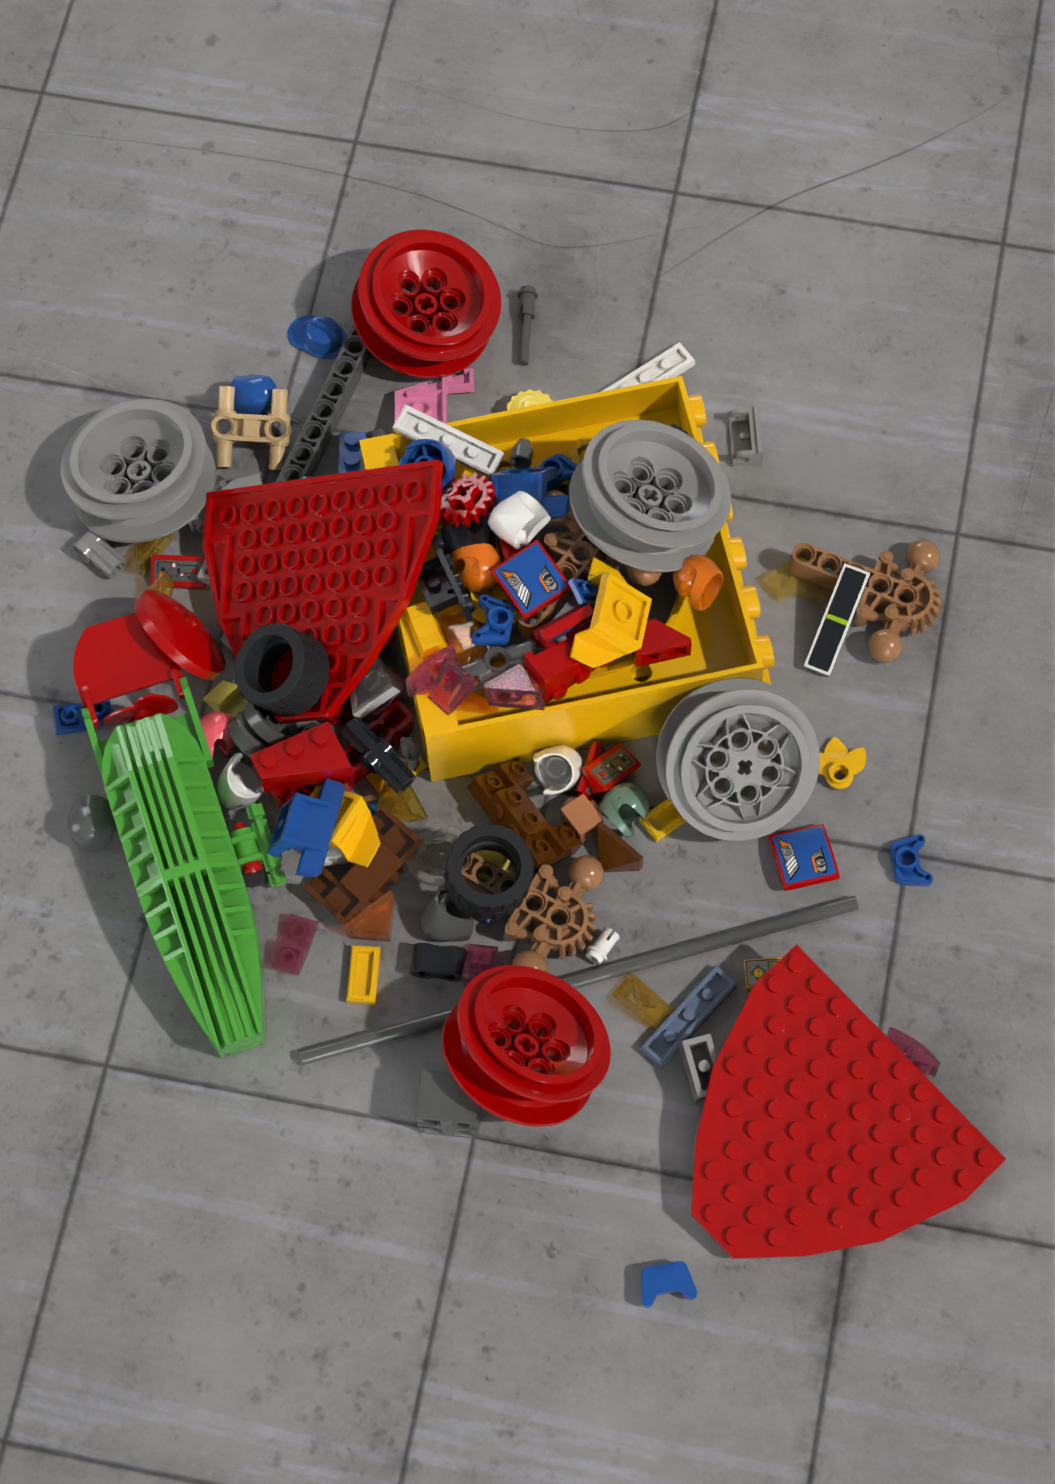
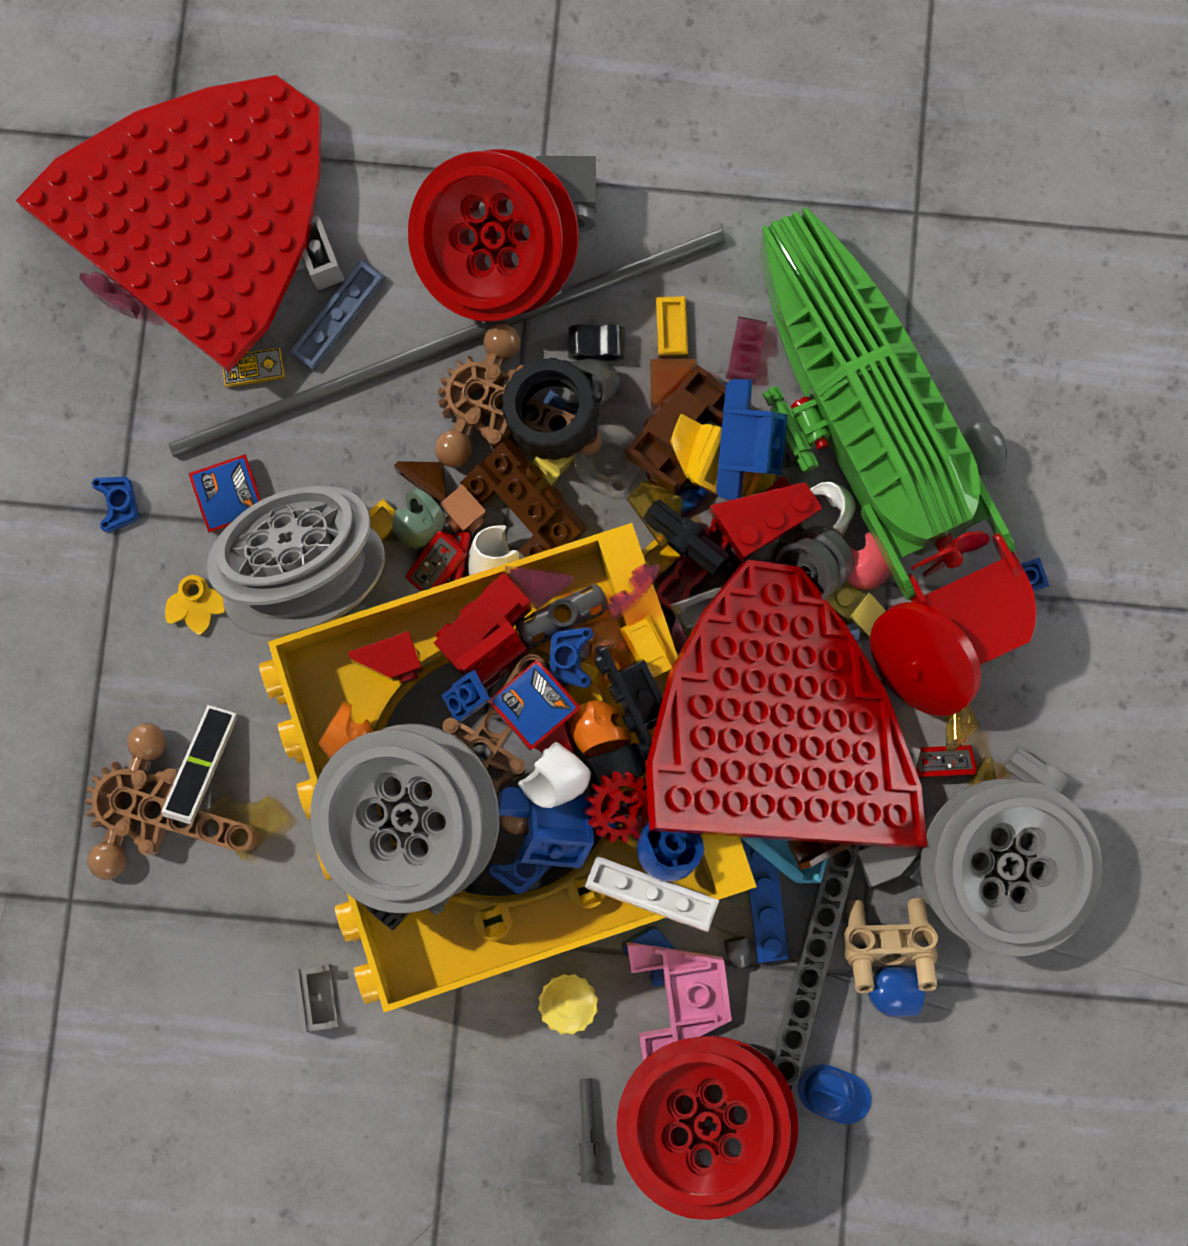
camera: 170 degrees right, 15 degrees up
(257, 661) = (825, 586): black tyre -> none
(409, 753) = (654, 552): dark grey axle -> none
(451, 686) = (606, 575): clear pink slope -> none
(478, 960) = (553, 336): clear pink slope -> none
(522, 454) = (563, 889): dark grey hose -> none
(598, 951) = (430, 376): white pin -> none
(617, 619) = (429, 665): yellow piece -> none
(643, 1001) = (384, 325): clear yellow slope -> none
(664, 366) = (439, 1069): white tile -> none
(664, 1280) = (340, 54): blue piece -> none

